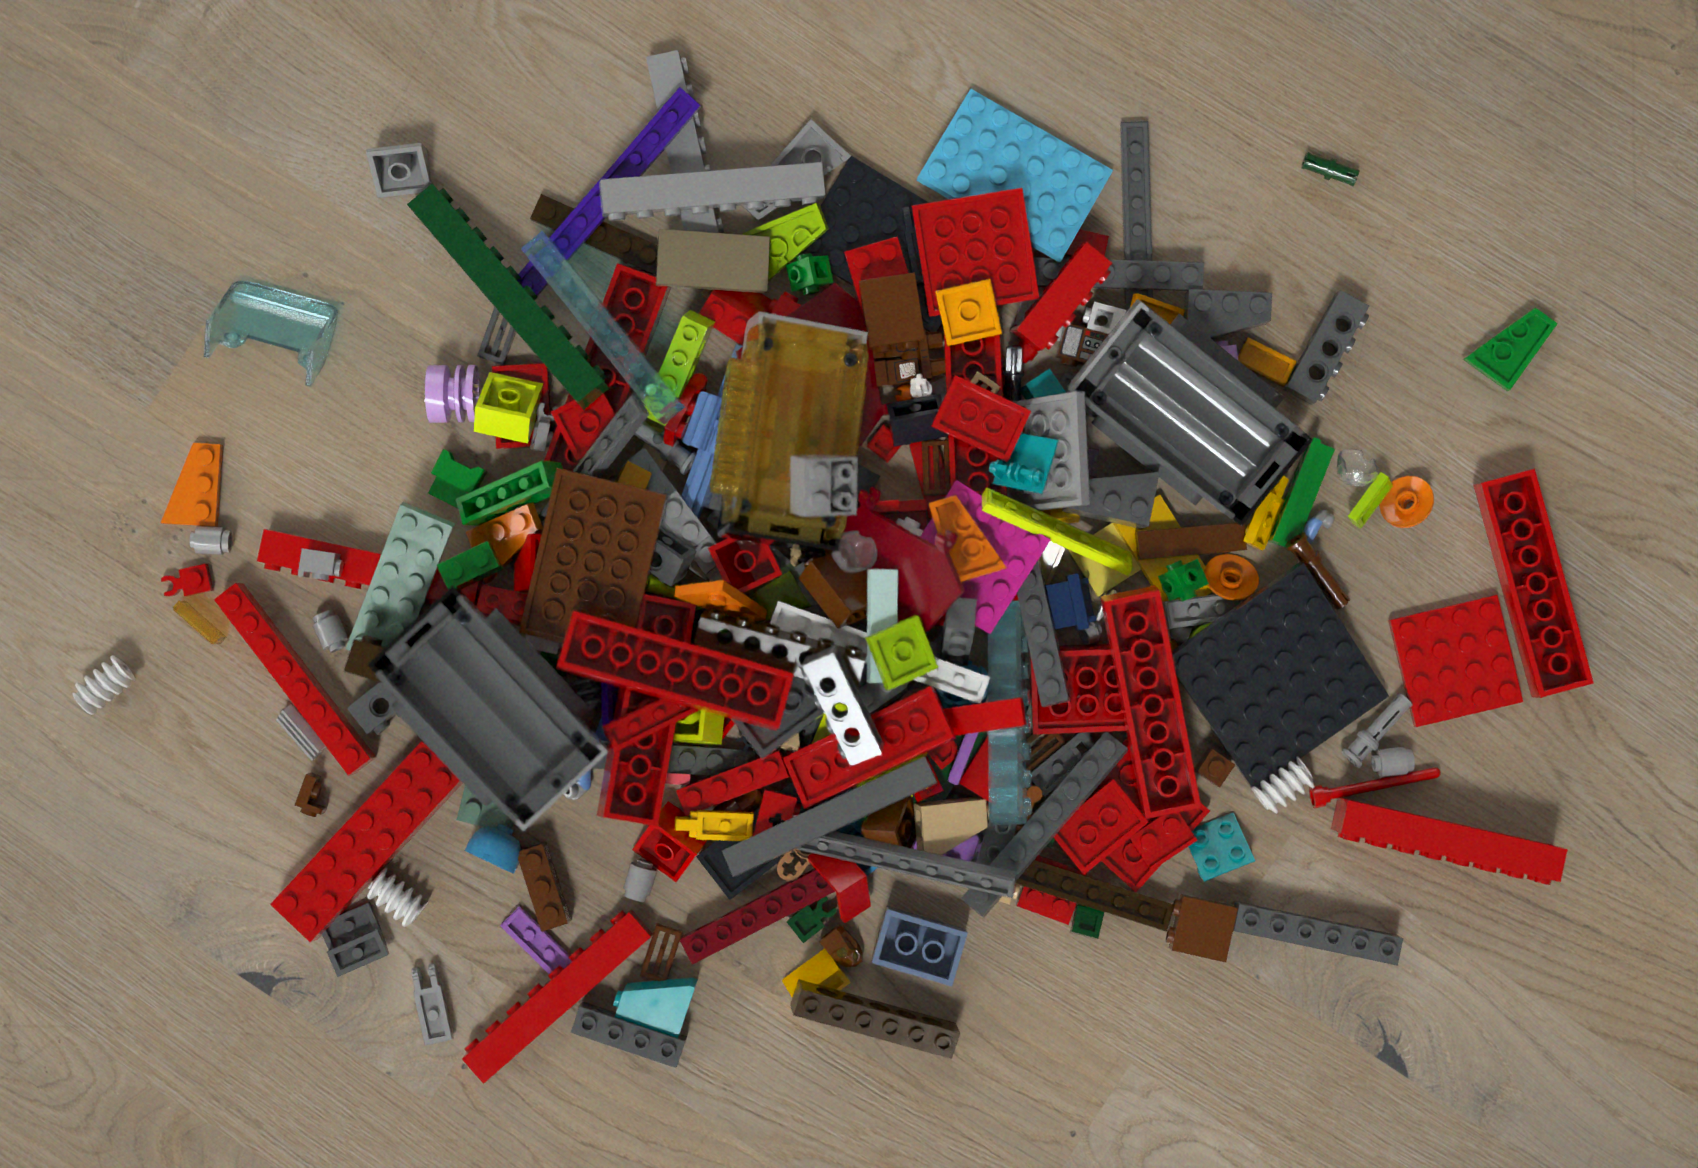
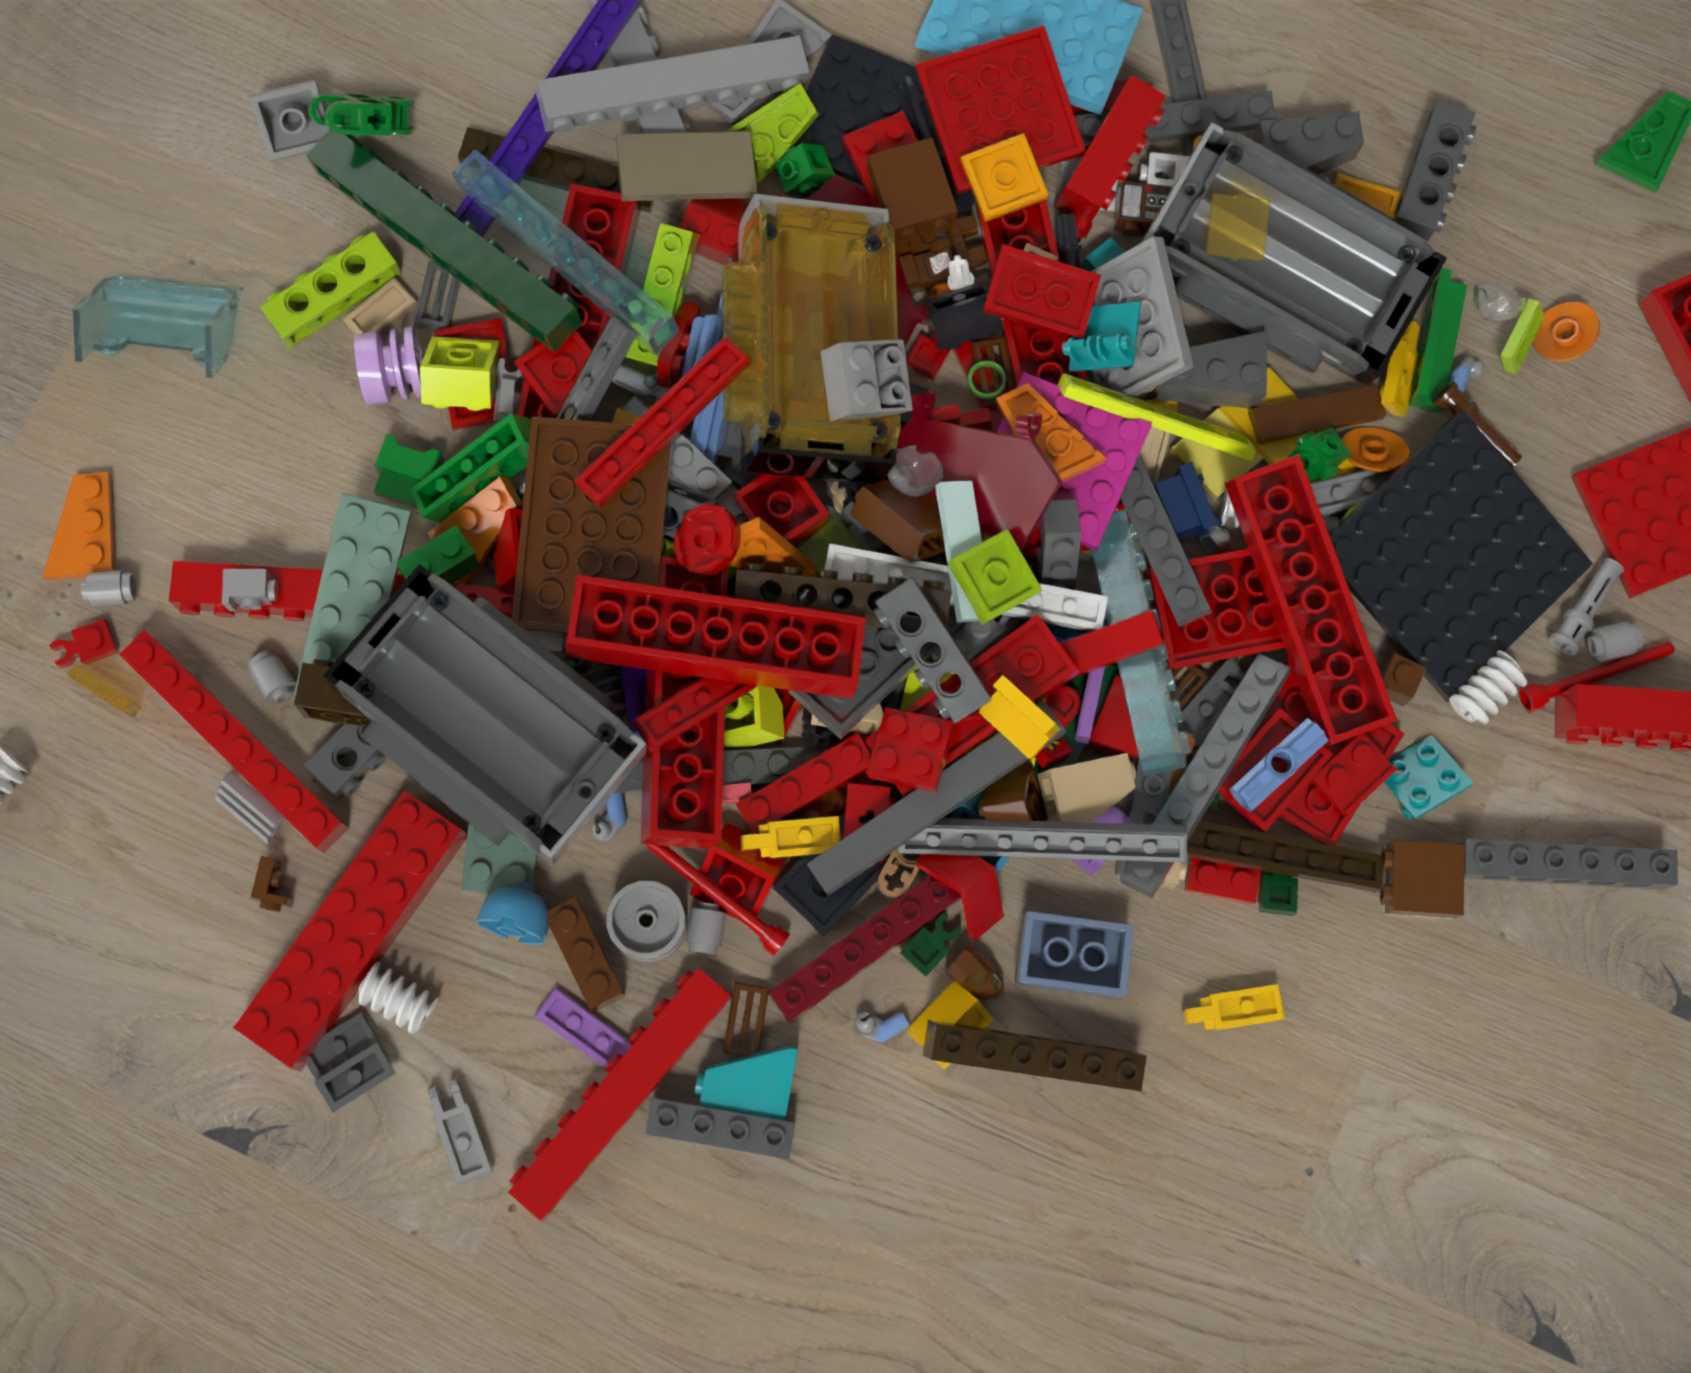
camera: 20 degrees left, 10 degrees down
(451, 340) = (381, 309): none -> tan tile
(454, 307) = (323, 306): none -> lime brick
(458, 176) = (364, 113): none -> green piece
(589, 885) = (651, 942): none -> light grey wheel
(659, 490) = (662, 422): none -> red tile
(681, 589) = (707, 539): none -> red tile
(690, 894) = (770, 935): none -> red piece
(762, 976) = (879, 1029): none -> arm
(815, 775) = (911, 749): none -> red plate
(902, 768) = (1018, 718): none -> yellow panel
(925, 488) = (986, 364): none -> bright green piece
(1039, 1004) = (1237, 1008): none -> yellow hinge
(1118, 817) = (1263, 779): none -> medium blue piece
(1145, 394) = (1237, 227): none -> clear yellow piece

